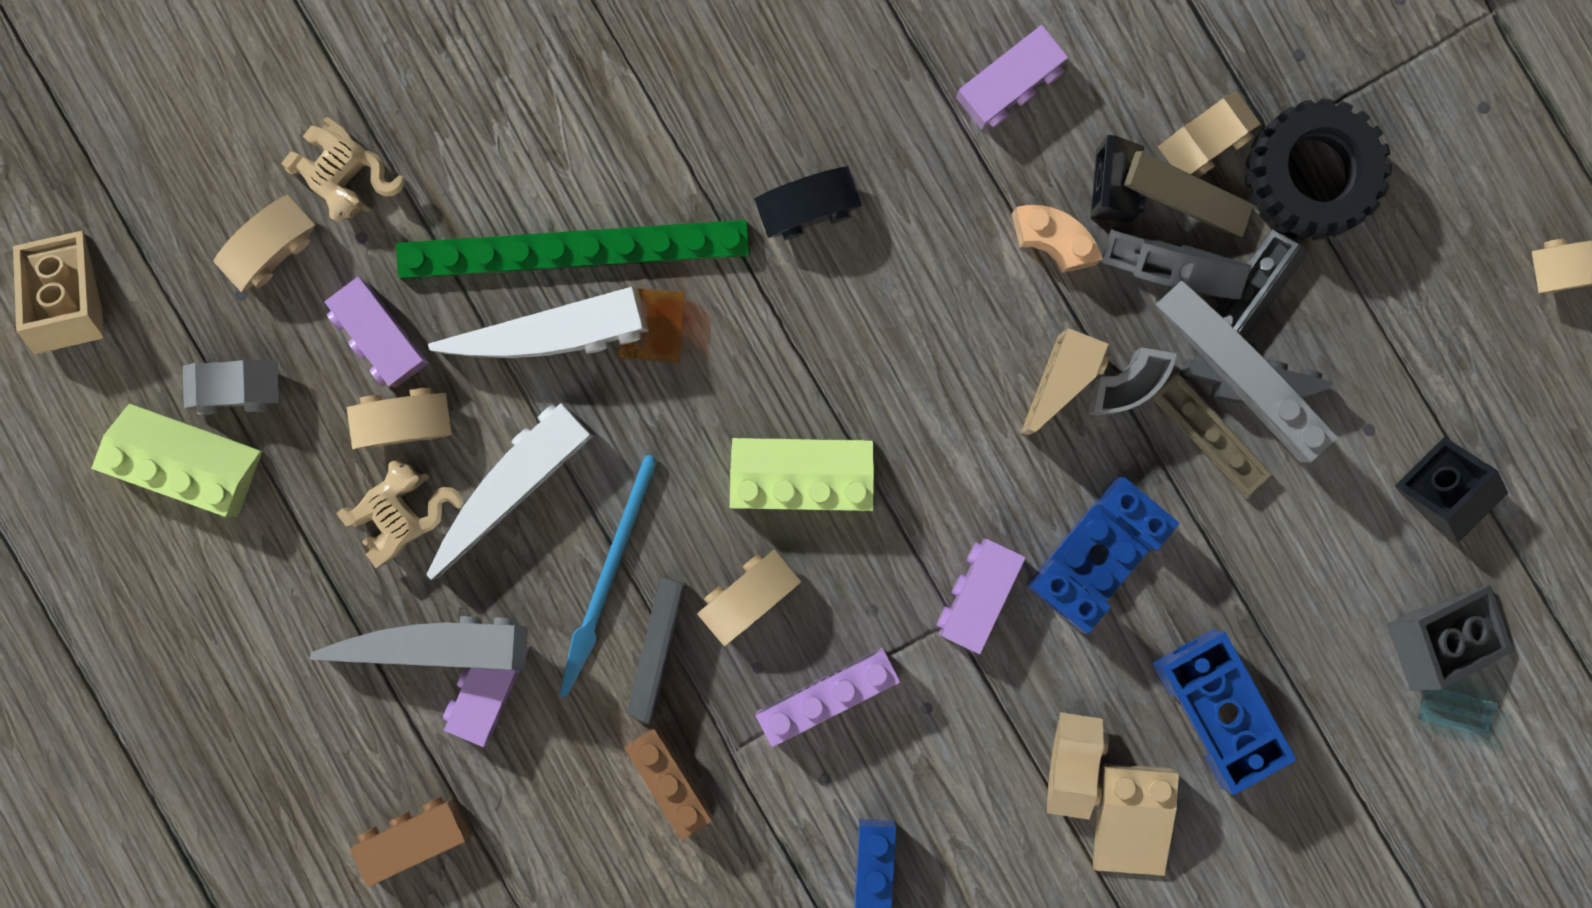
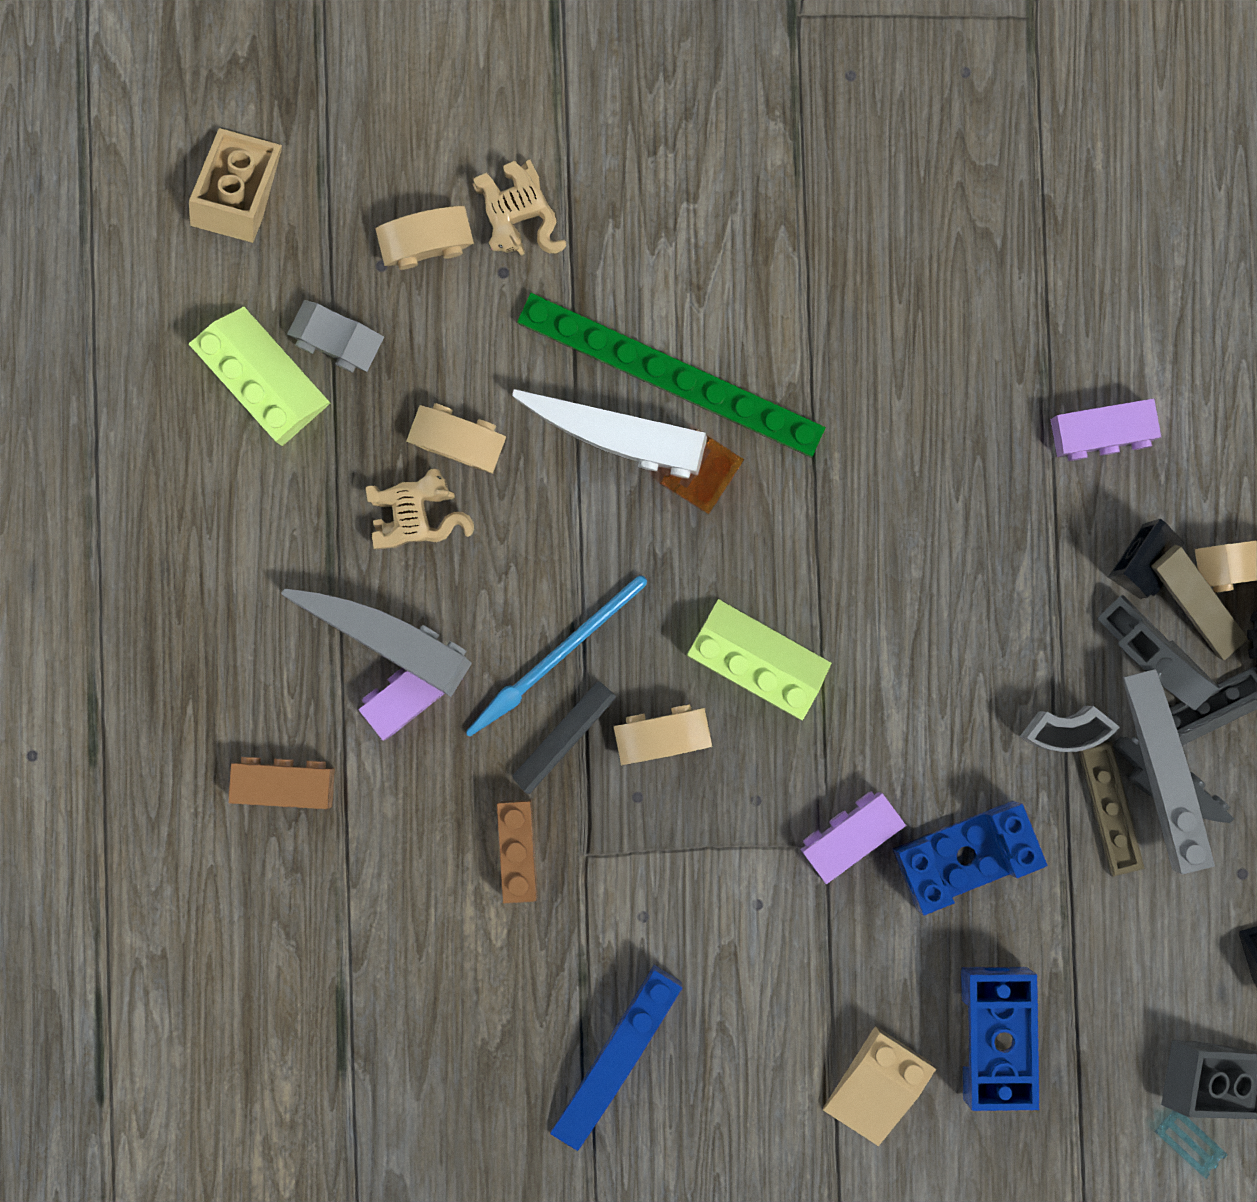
camera: 25 degrees right, 0 degrees up
(375, 333) = (474, 357): lavender brick -> none
(511, 481) = (523, 536): white slope -> none
(808, 202) = (884, 440): black brick -> none
(827, 697) = (683, 851): lavender brick -> none
(1057, 235) = (1073, 576): light nougat brick -> none
(1071, 367) = (1024, 692): tan slope -> none
(1075, 766) = (855, 1017): tan brick -> none

